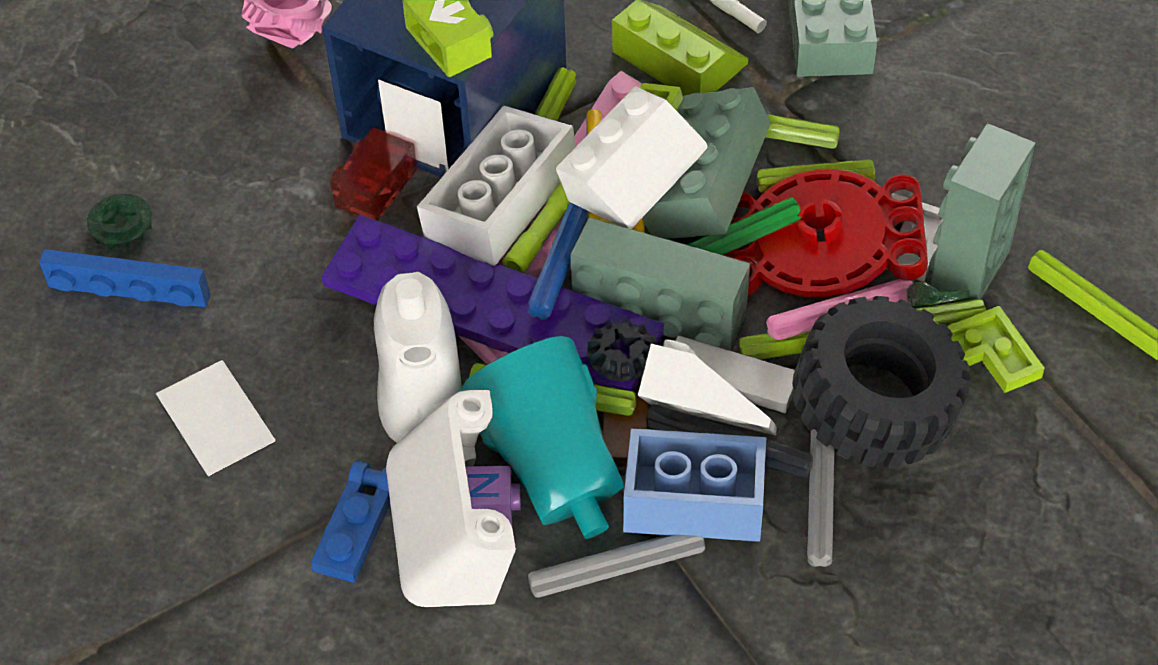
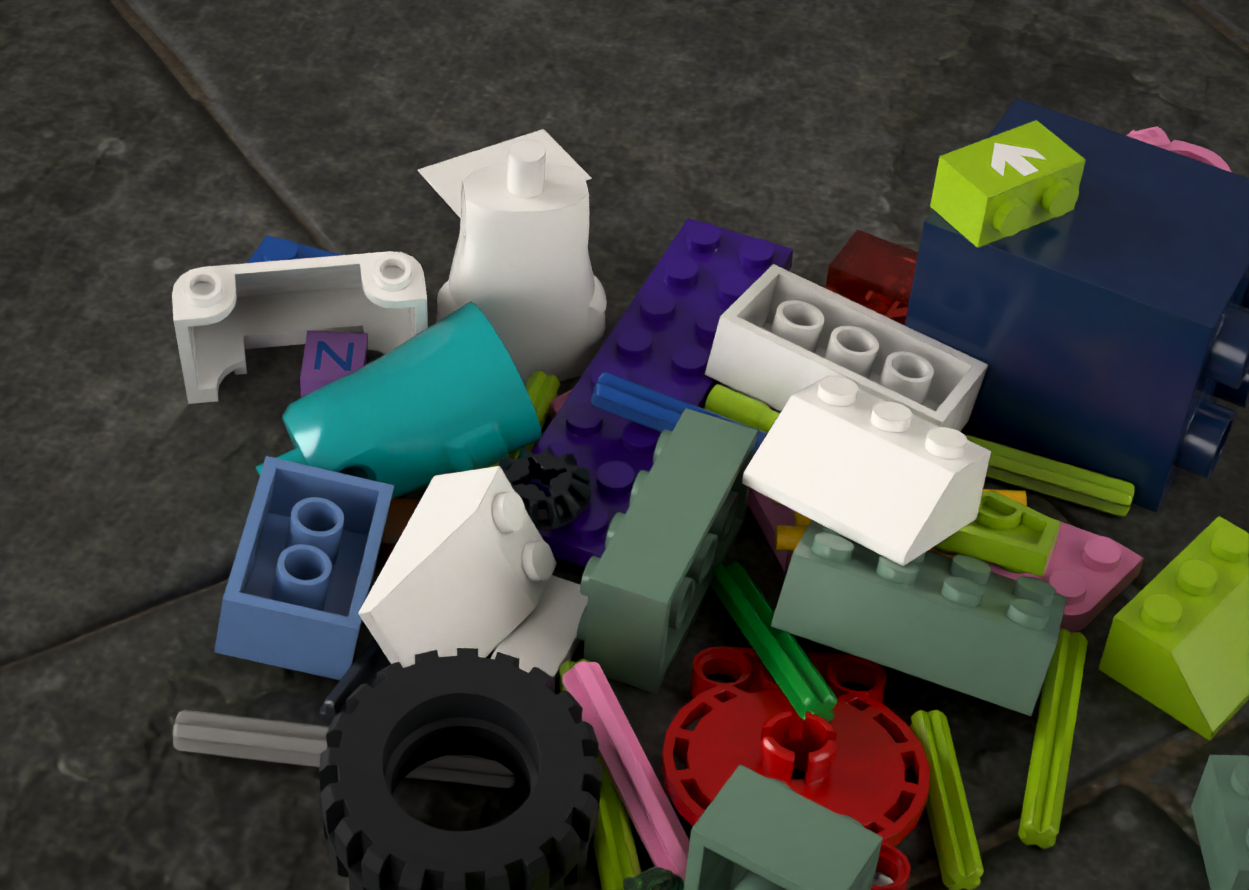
camera: 85 degrees right, 10 degrees down
(103, 217) = (818, 91): clear green gear -> none
(125, 278) = (701, 88): blue plate -> none
(613, 563) = (214, 495): light grey axle -> none

